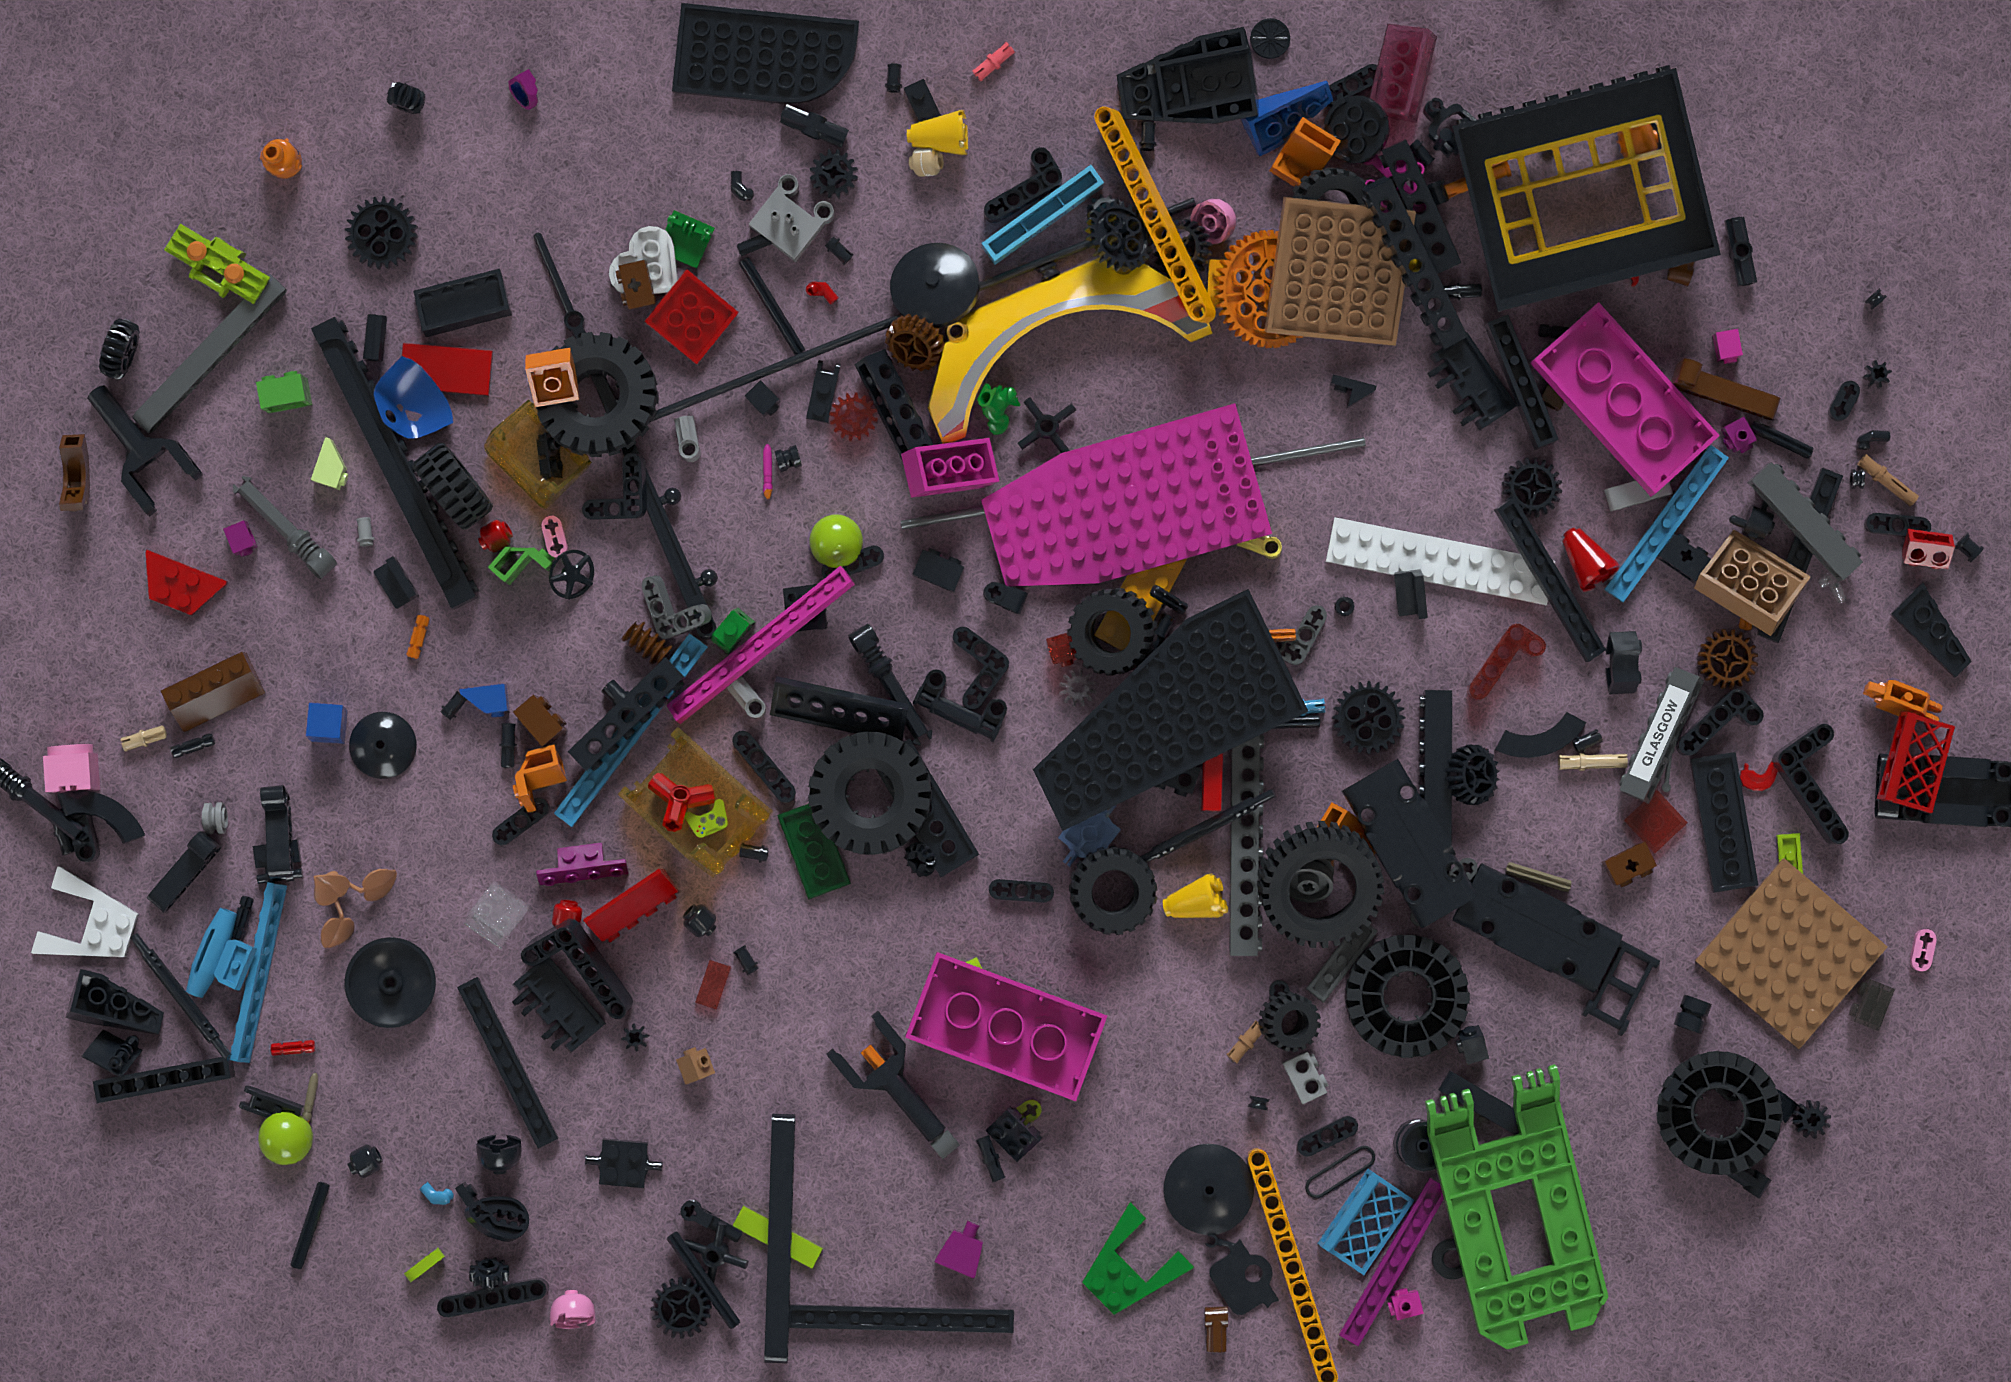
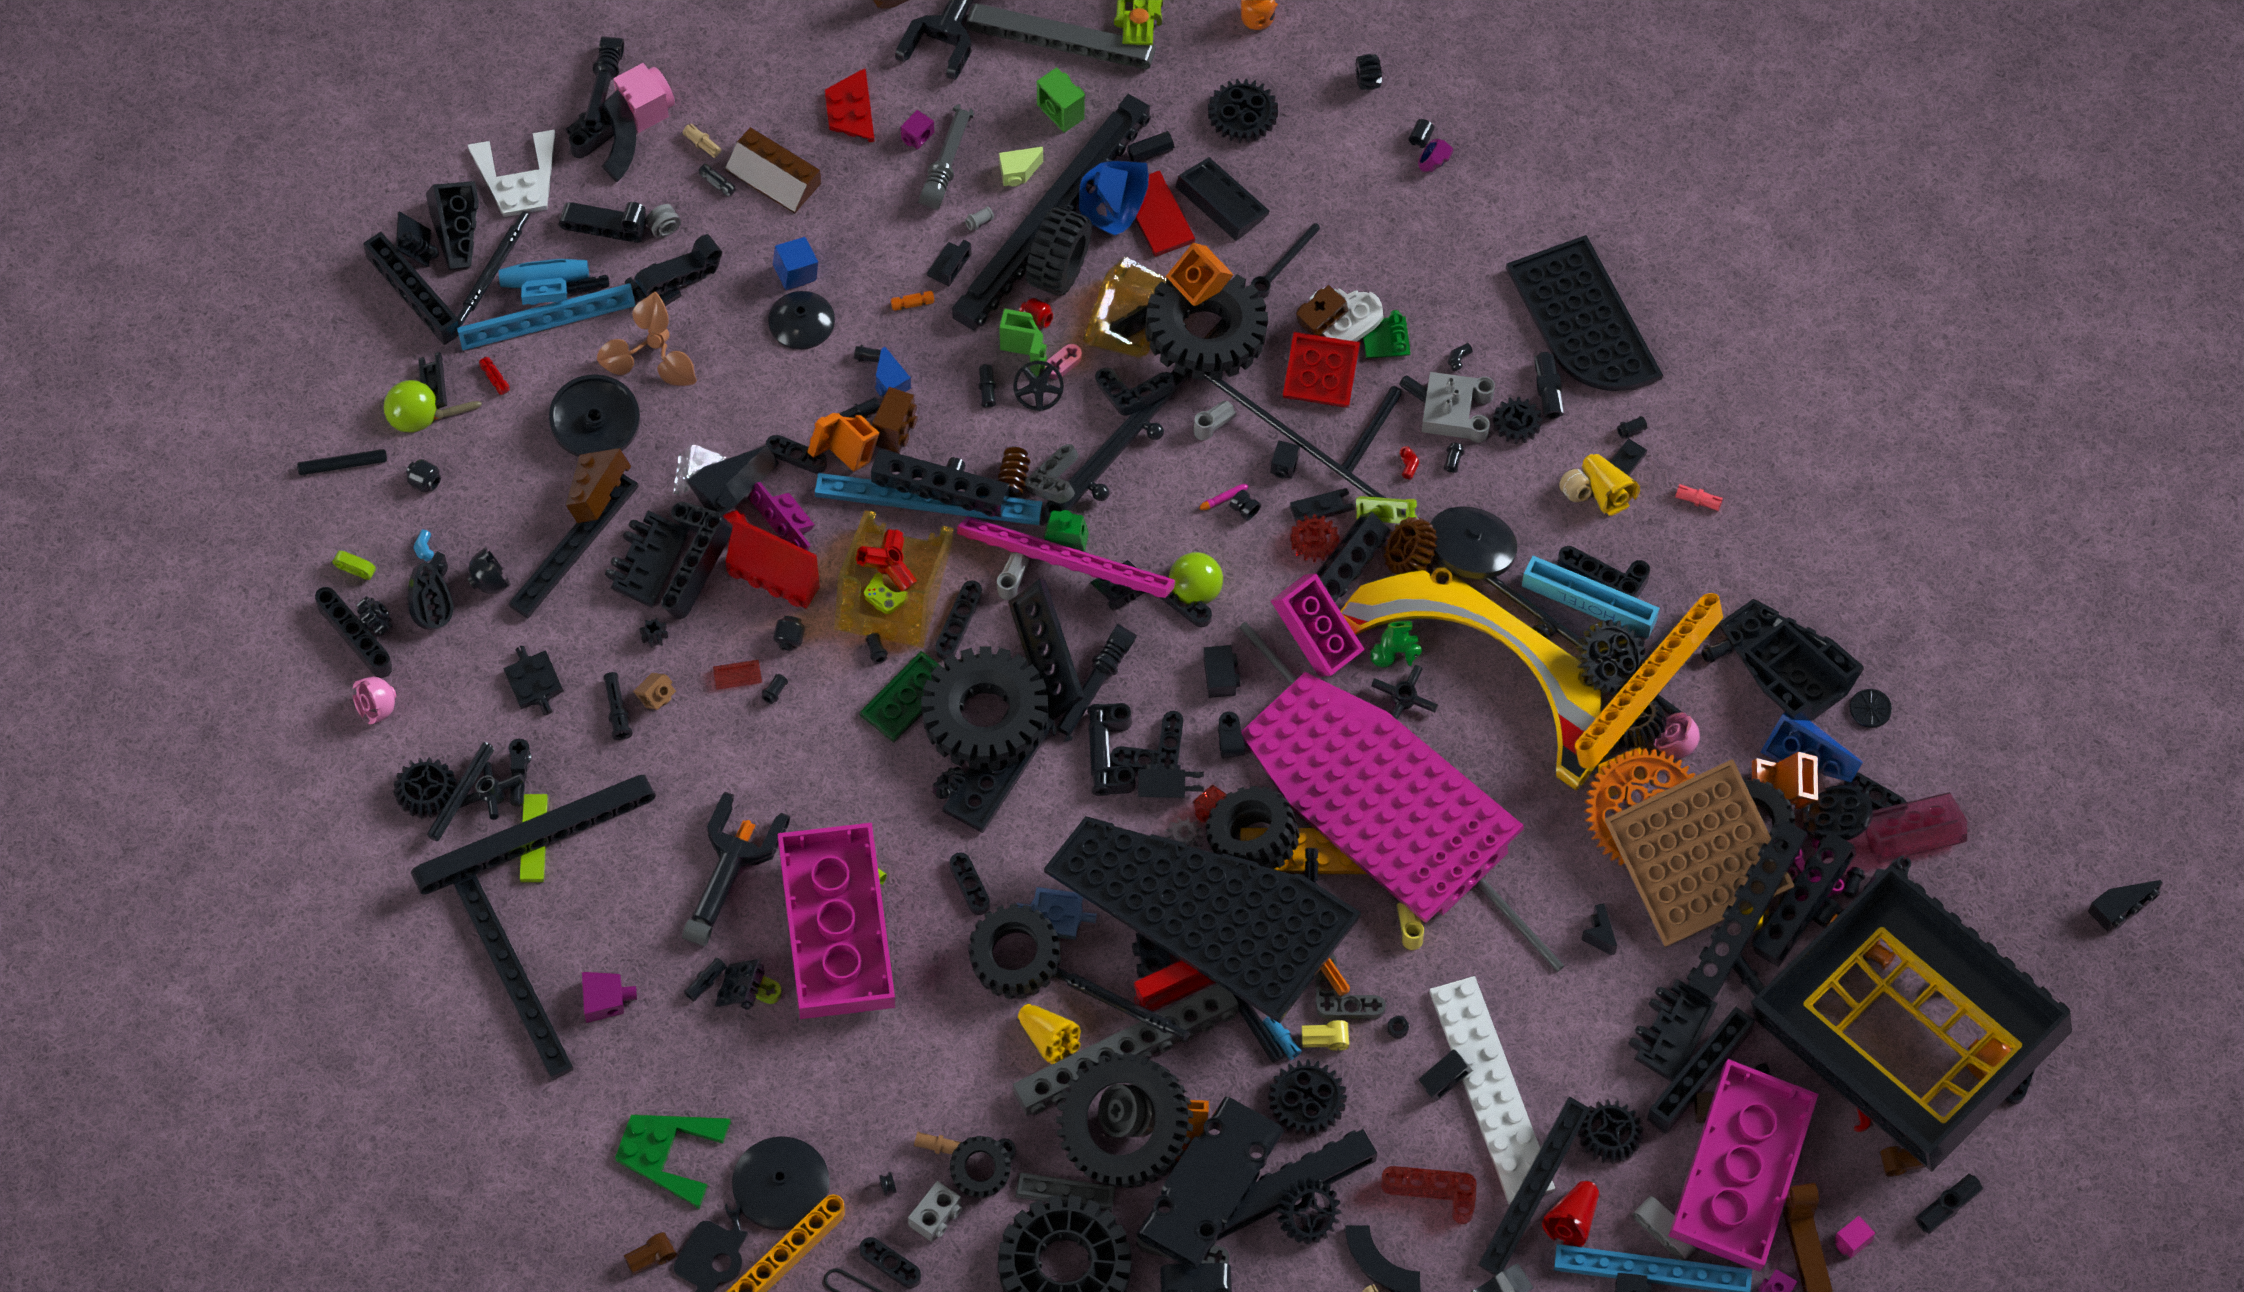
camera: 60 degrees right, 25 degrees down
(406, 399) = (1111, 188): none -> blue slope
(461, 1017) = (594, 481): none -> reddish brown wedge
(493, 86) = (1421, 133): none -> black beam
(523, 896) = (731, 479): none -> black wedge
(542, 617) = (987, 386): none -> black axle
(700, 1111) = (618, 714): none -> black pin
(865, 341) = (1386, 509): none -> lime plate
(1021, 675) = (1166, 782): none -> black hinge
(1324, 667) = (1332, 1035): none -> light yellow piece

